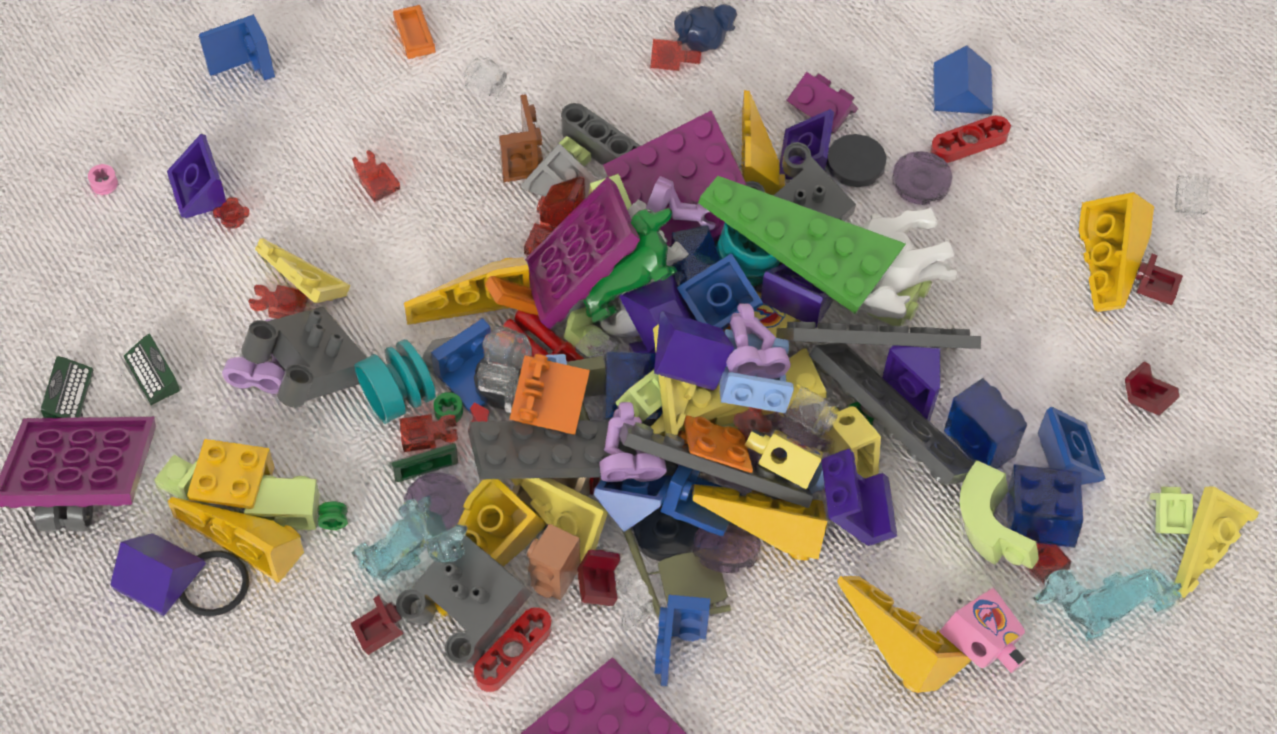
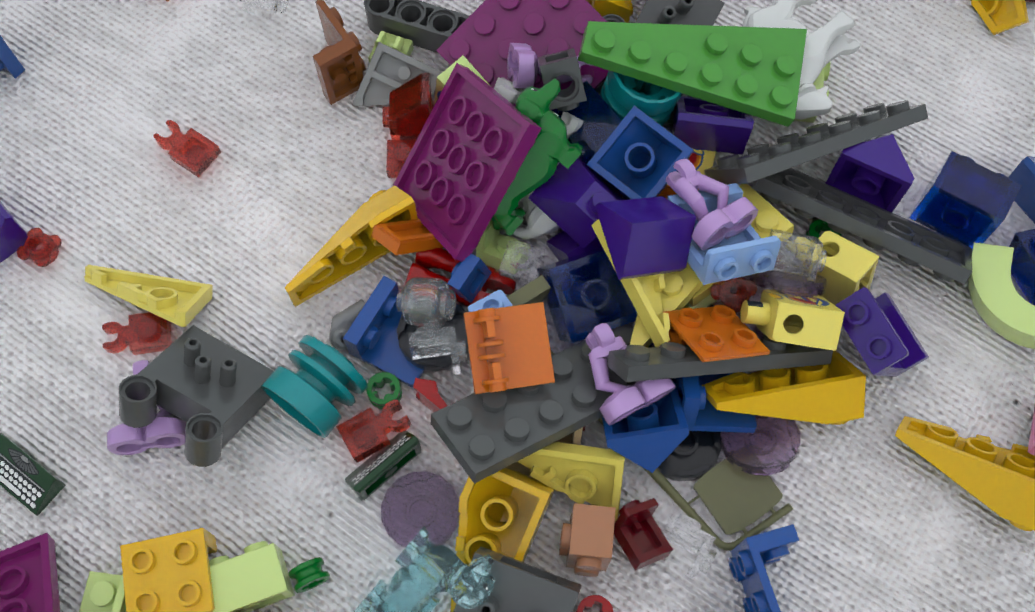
camera: 20 degrees left, 10 degrees up
(549, 341) = (469, 277): none -> blue plate
(644, 396) = (610, 307): yellowish green bracket -> none
(689, 203) = (560, 64): none -> dark grey brick

